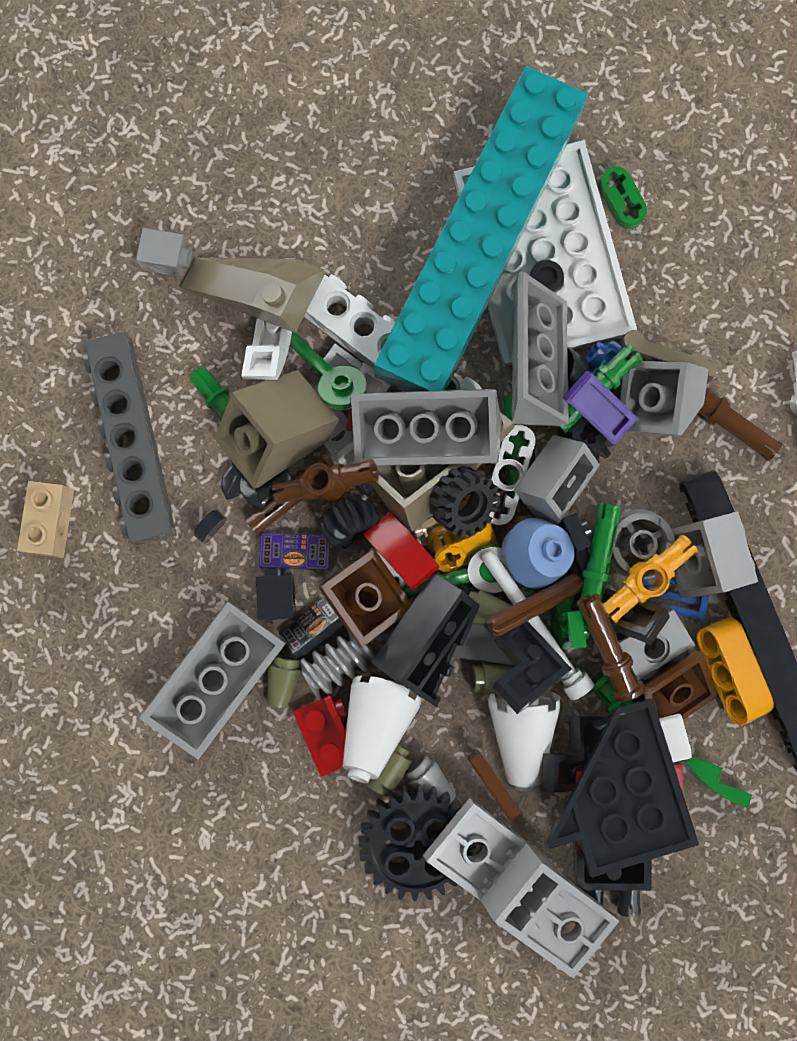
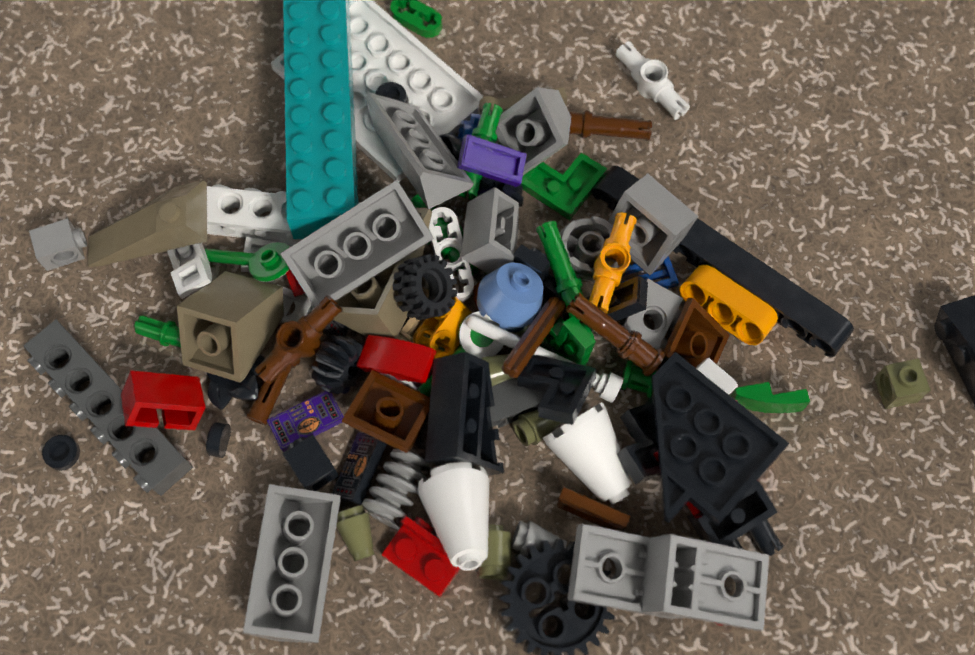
camera: 30 degrees left, 15 degrees down
(45, 519) = (63, 516): tan brick -> none
(72, 455) = (61, 452): none -> black tile
(188, 466) = (176, 395): none -> red piece
(658, 469) = (566, 191): none -> green plate

